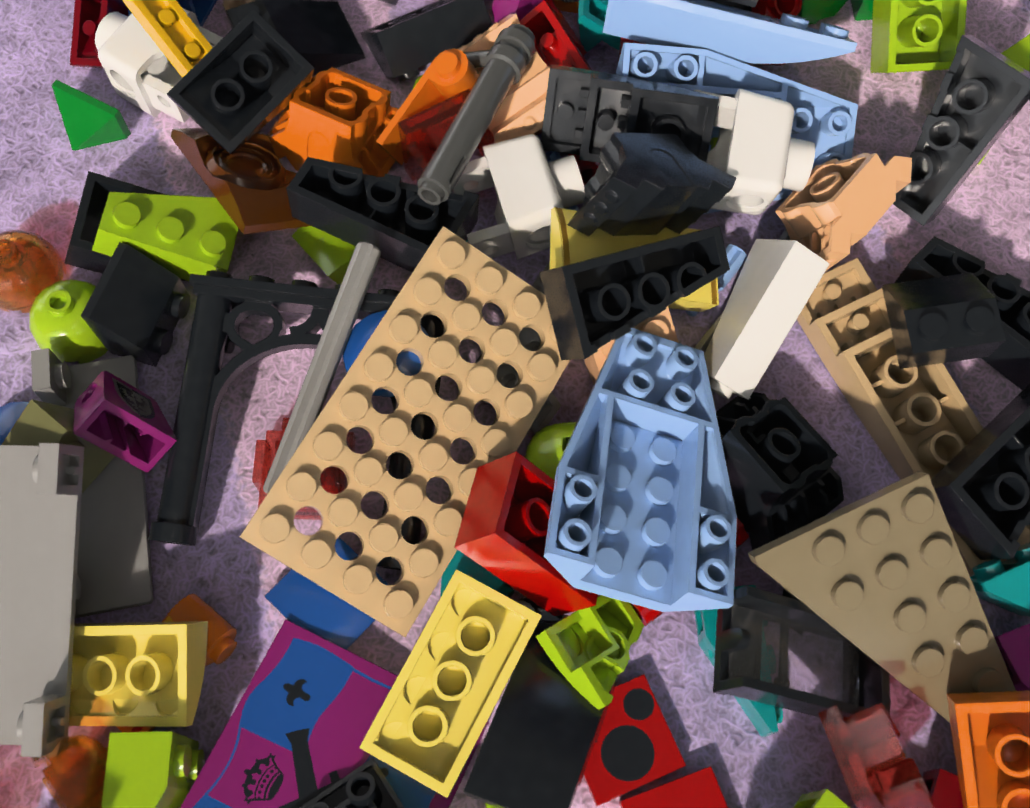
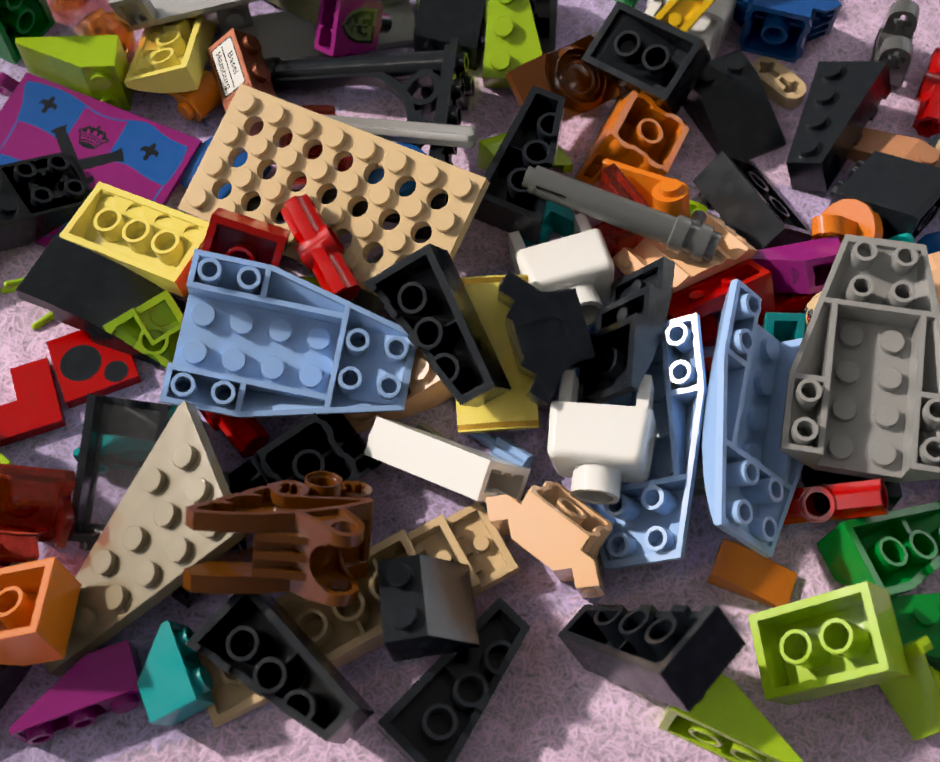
camera: 90 degrees right, 5 degrees down
(194, 563) = (238, 60): none -> copper brick
(512, 427) = (319, 247): none -> red piece
(835, 75) = (751, 575): none -> orange slope
(908, 425) = (303, 540): none -> reddish brown piece

